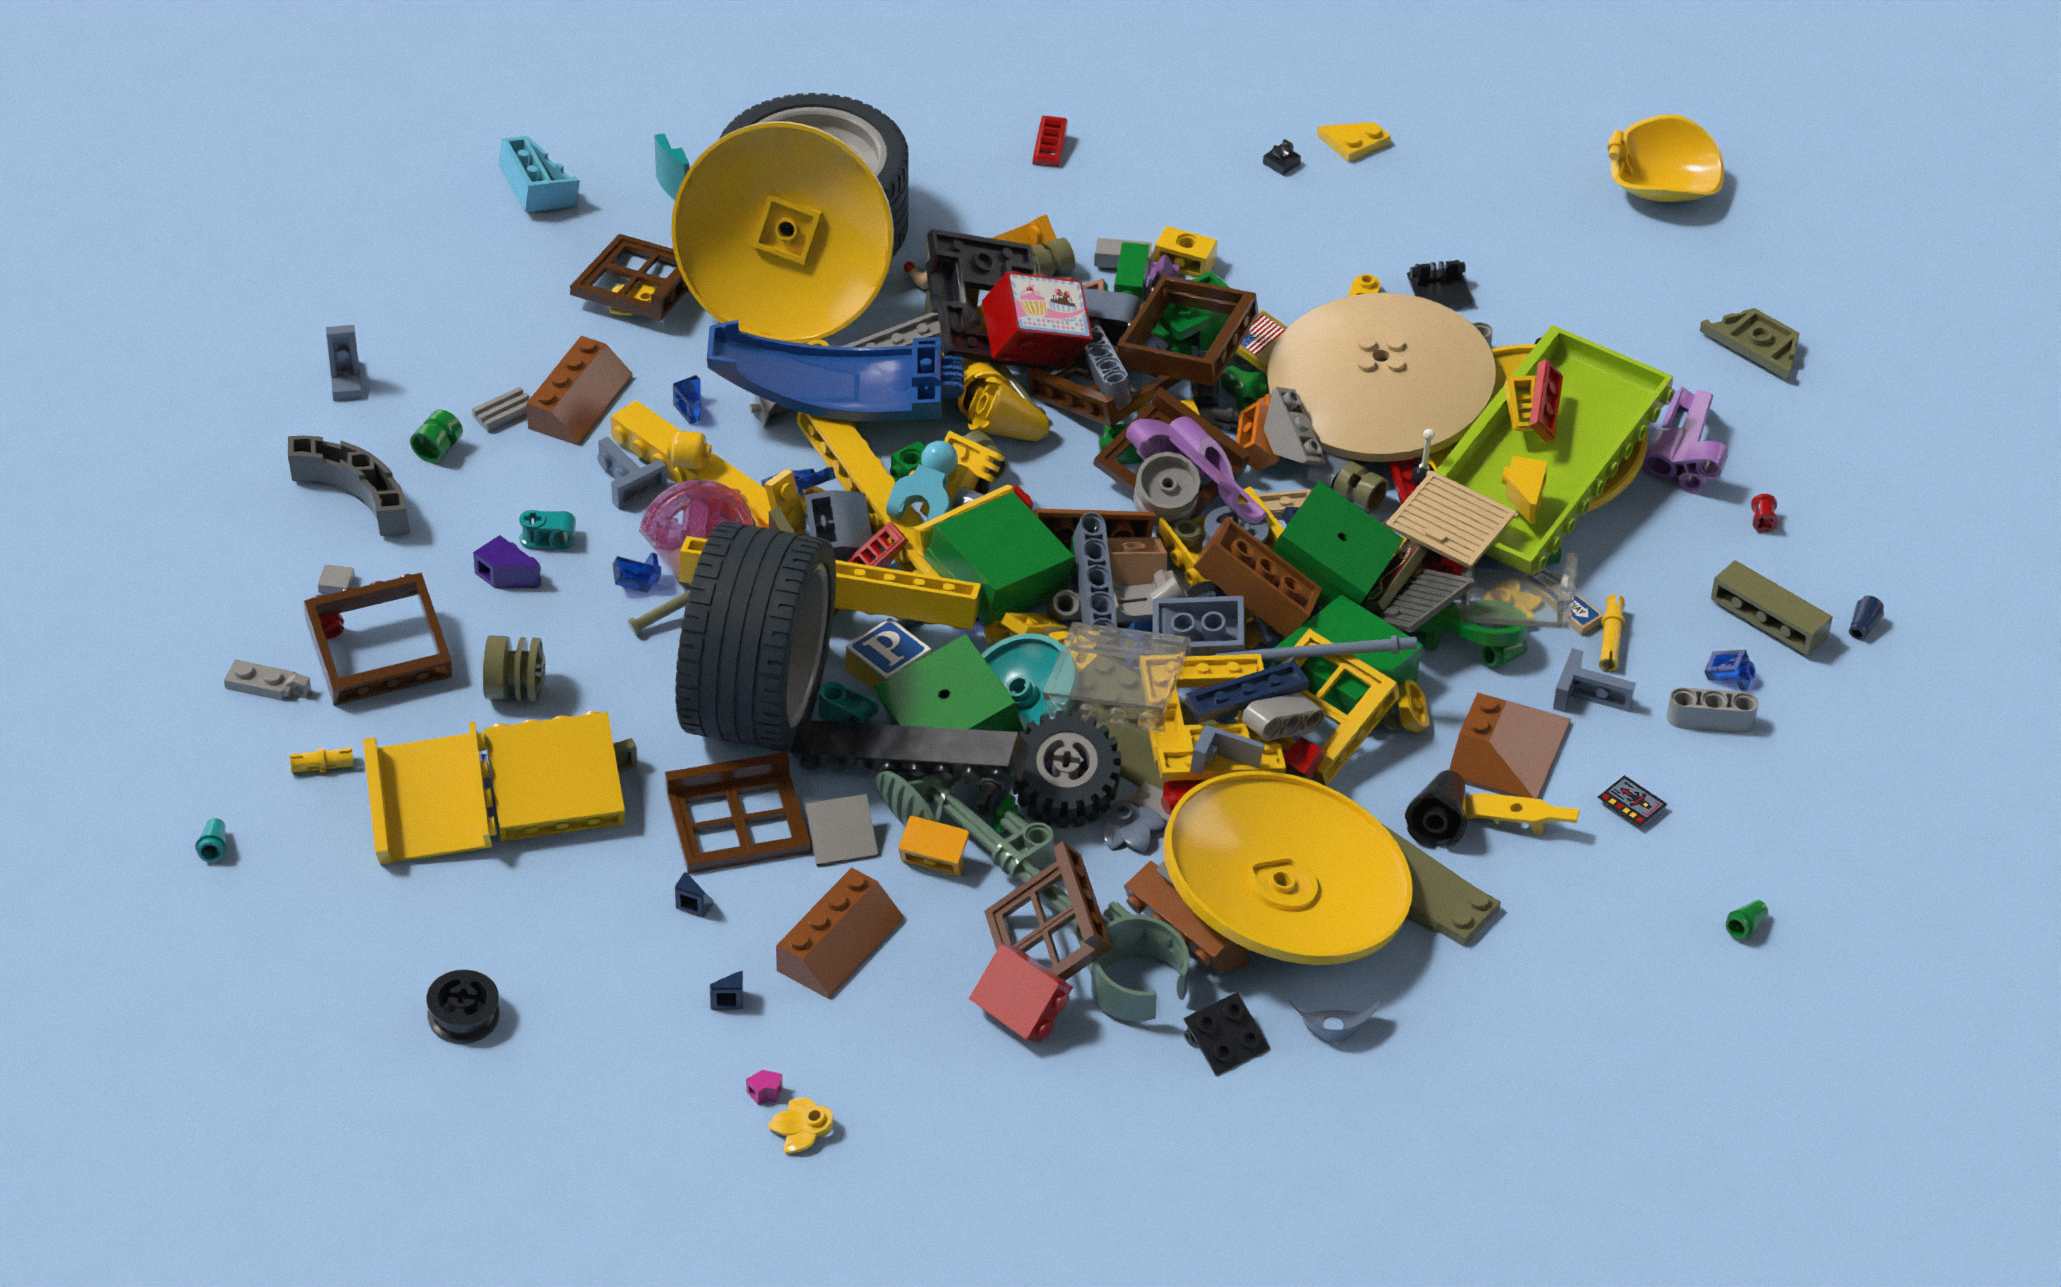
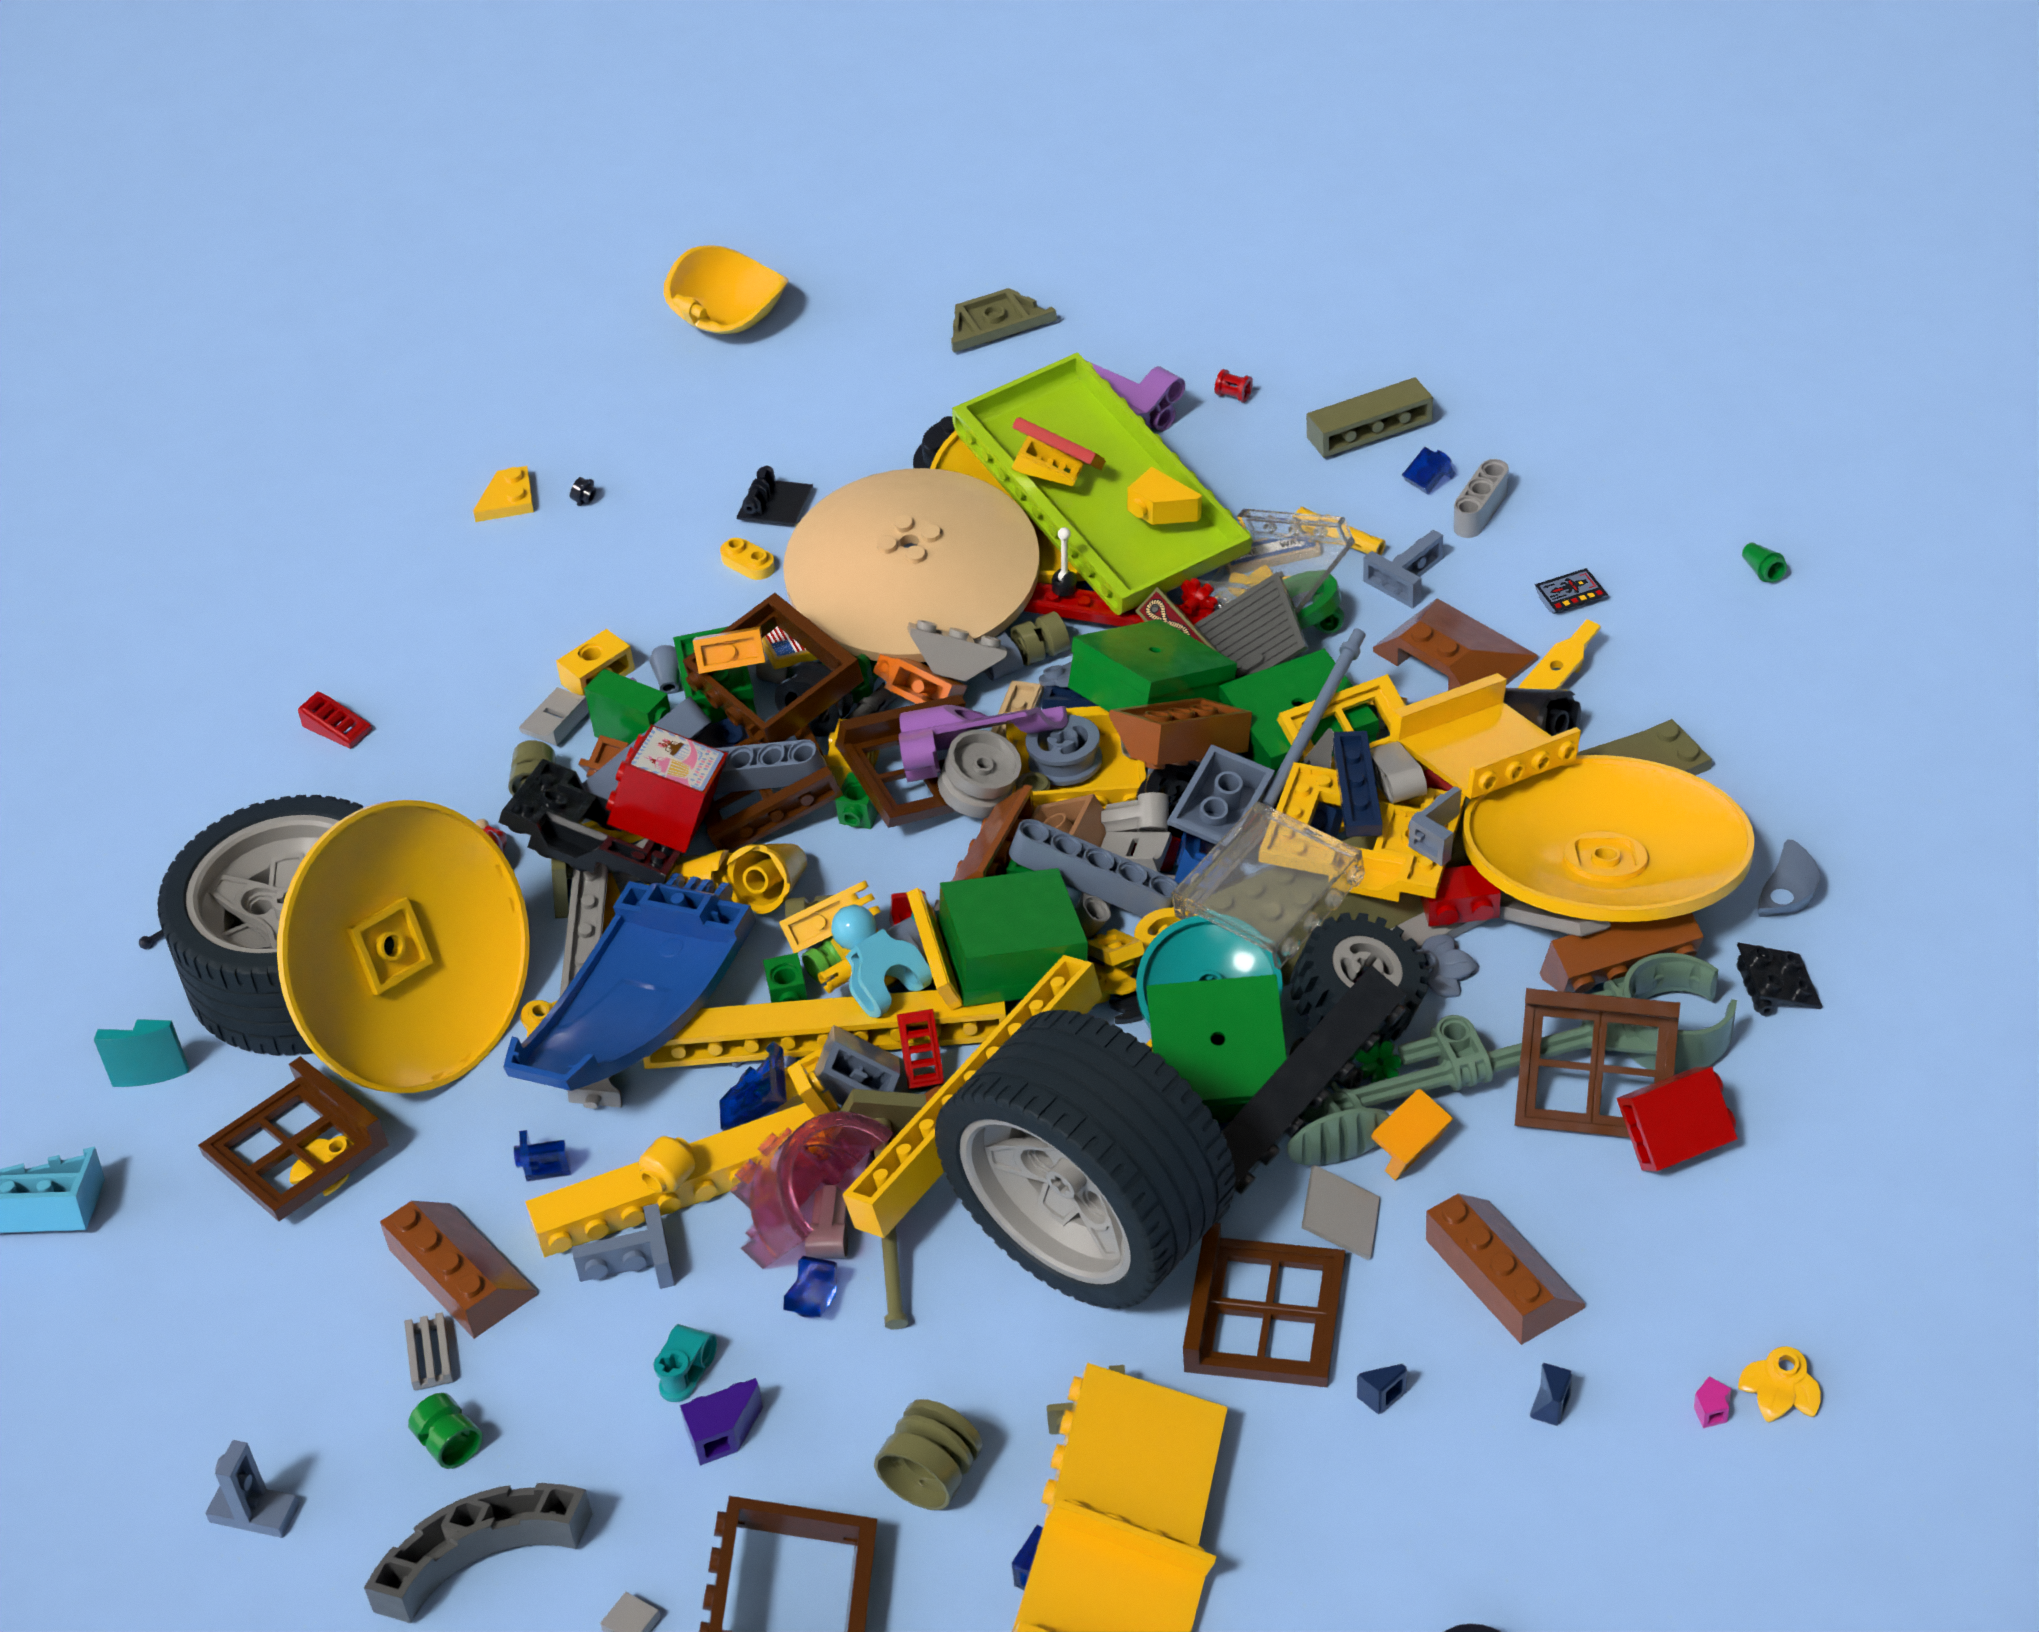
camera: 60 degrees left, 0 degrees up
(1033, 233) = (479, 780): light orange bracket -> none
(1178, 289) = (729, 650): none -> light orange panel
(1282, 158) = (497, 553): black tile -> none
(1362, 762) = (1479, 739): none -> yellow panel
(1380, 176) = (583, 491): none -> black plate
(1451, 519) = (1161, 572): tan piece -> none
(1866, 615) = (1404, 365): dark blue cone -> none

